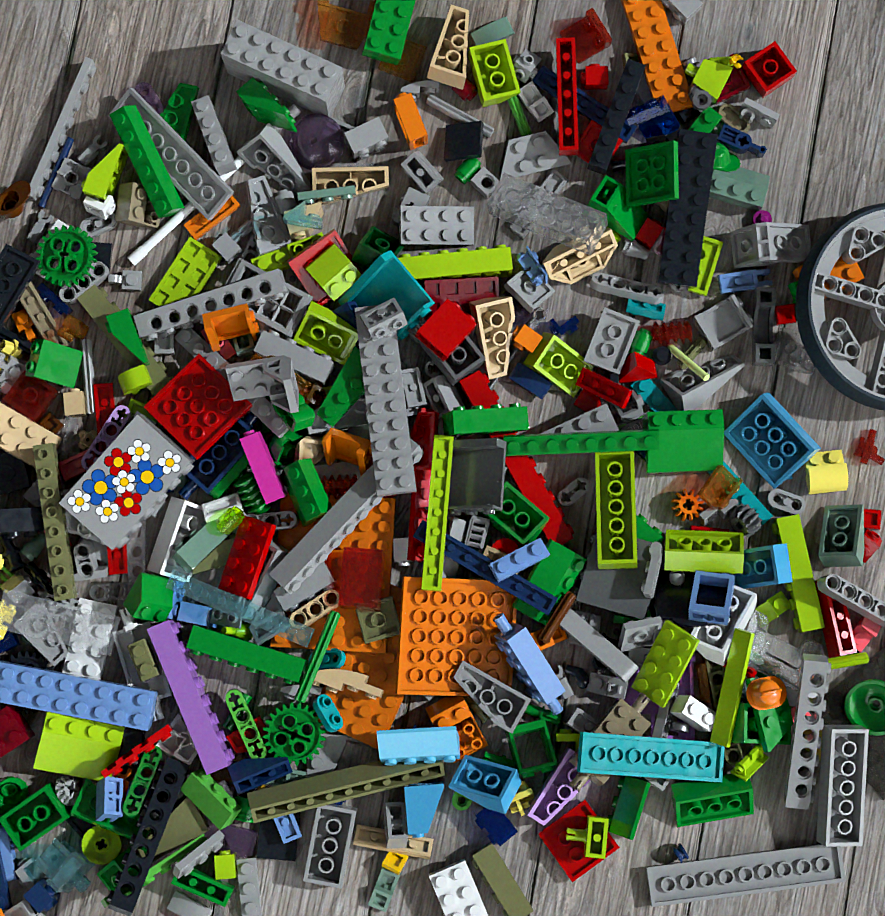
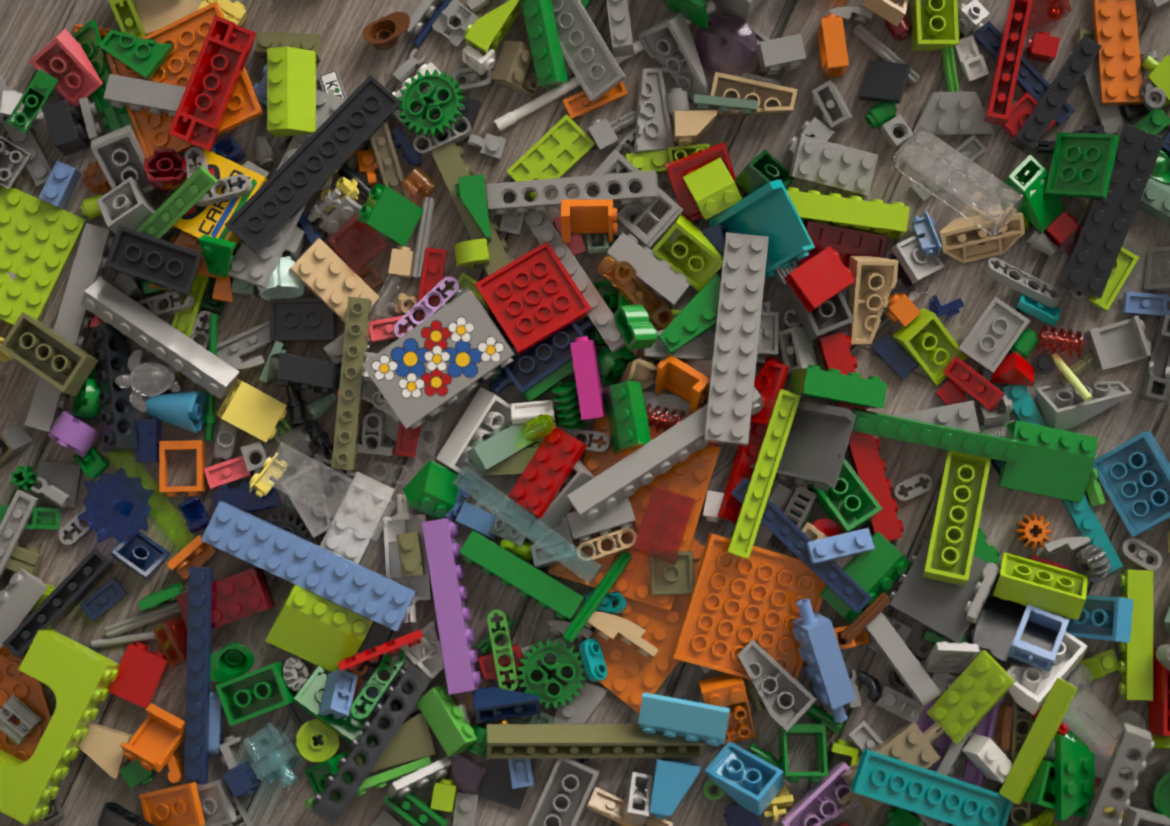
camera: 20 degrees right, 0 degrees up
(263, 378) = (613, 284): light grey bracket -> none
(298, 217) = (688, 121): clear light blue slope -> none
(384, 319) = (756, 252): light grey bracket -> none
(653, 117) = (1096, 105): clear blue bracket -> none
(677, 577) = (1003, 607): light grey hinge -> none
(679, 727) = (968, 769): flat silver tile -> none
(719, 488) = (1074, 522): clear orange bracket -> none
(732, 455) = (1094, 490): none -> bright green bar
(766, 693) = (1074, 756): orange piece -> none

